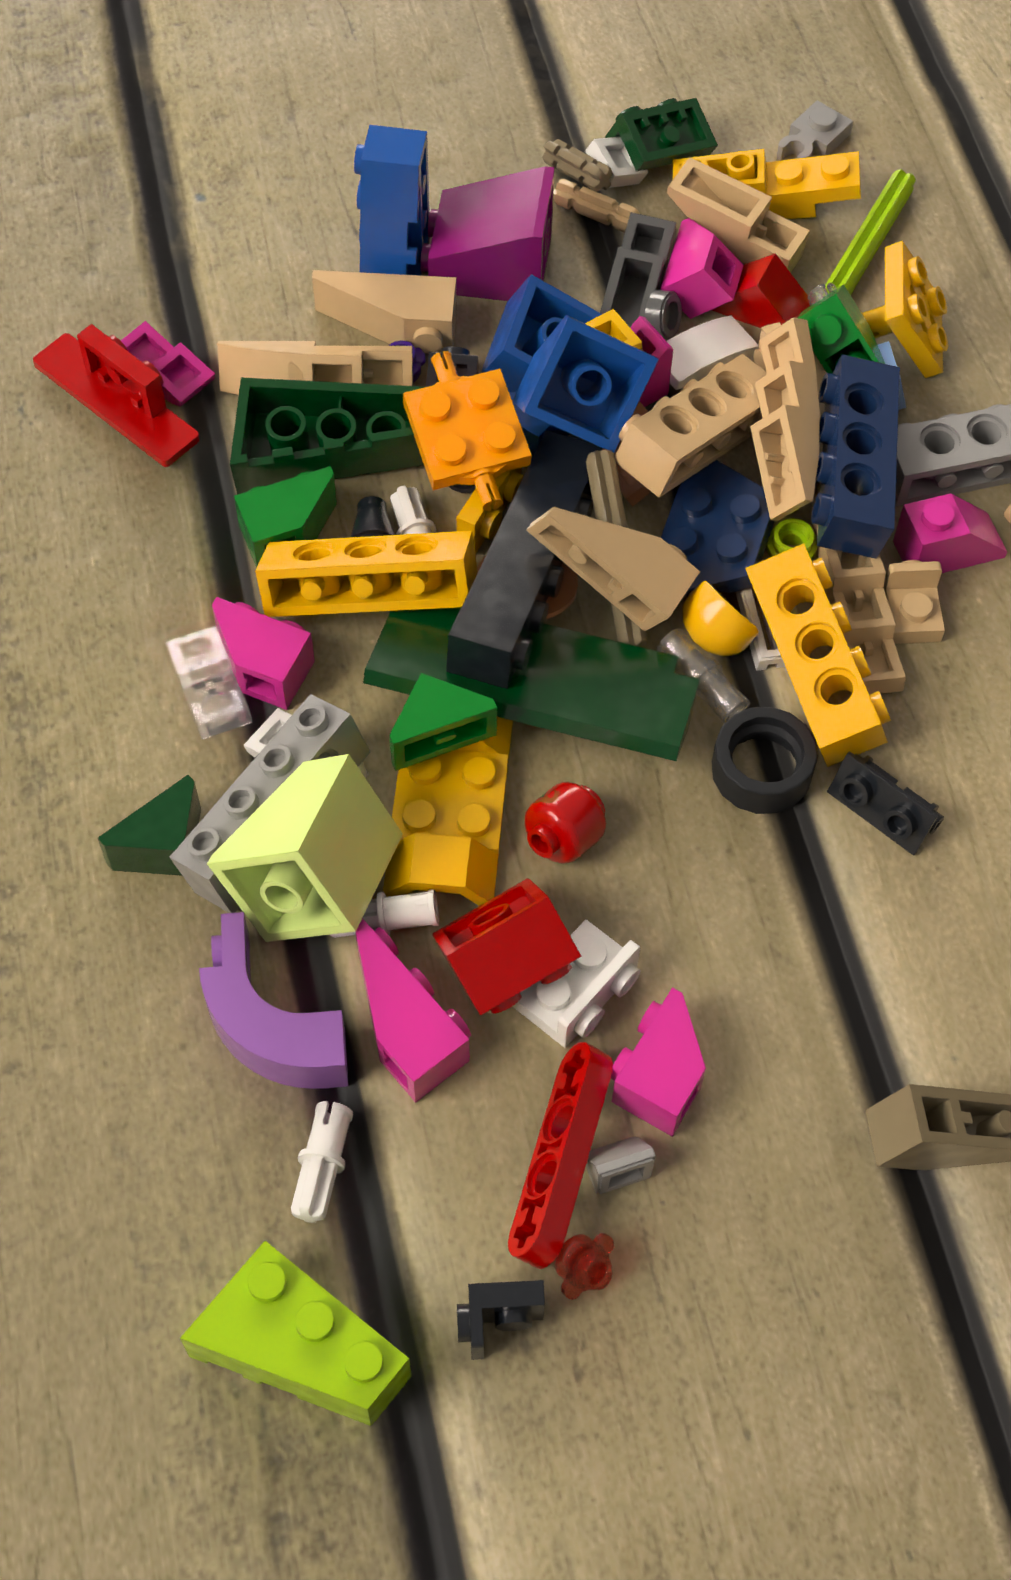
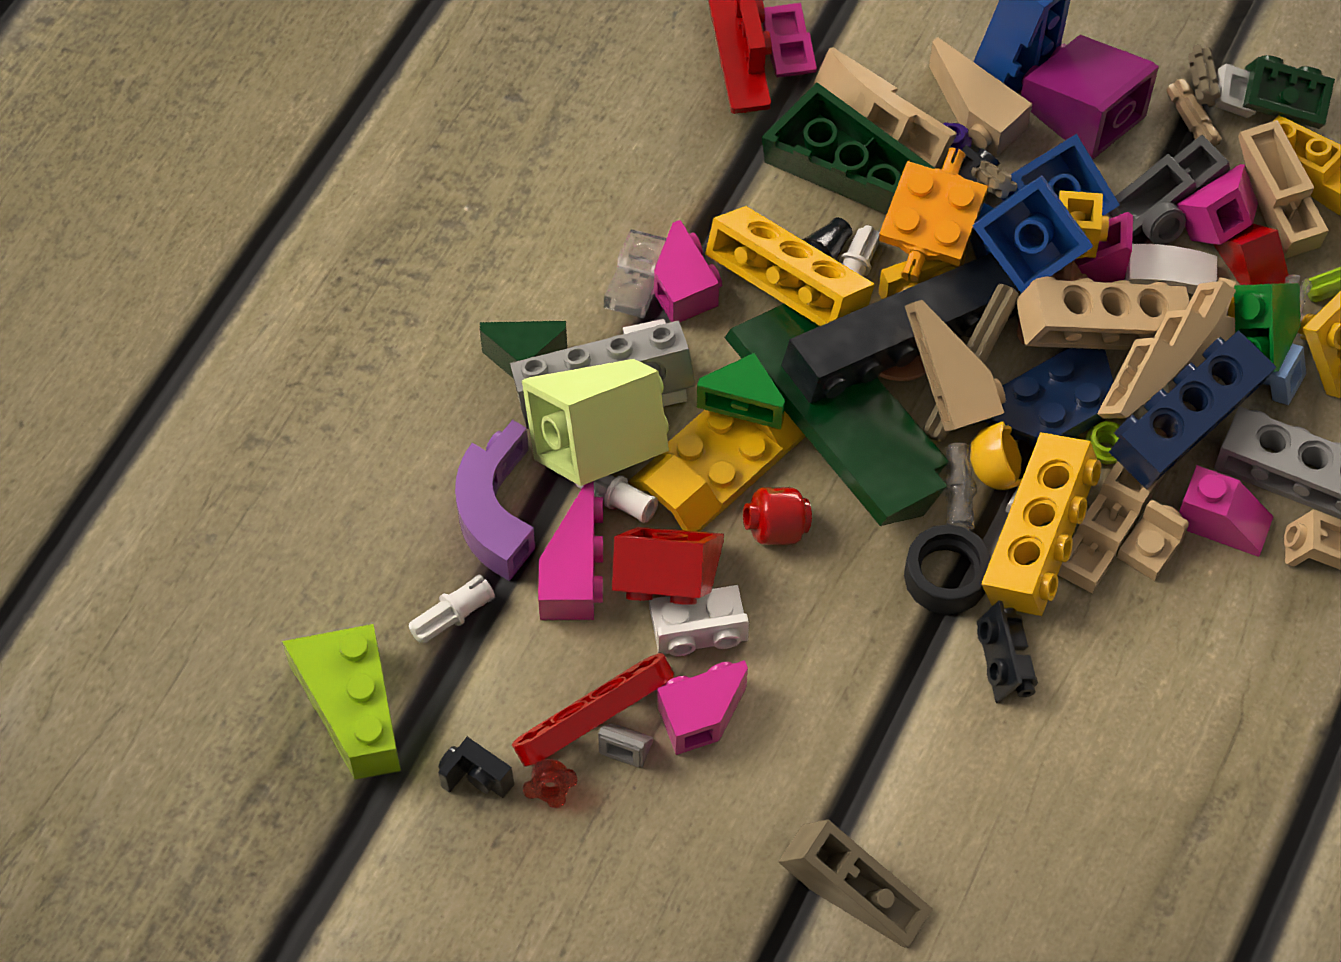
camera: 40 degrees right, 0 degrees up
(286, 510) = (781, 193): green slope -> none
(509, 358) = (995, 178): none -> dark tan axle

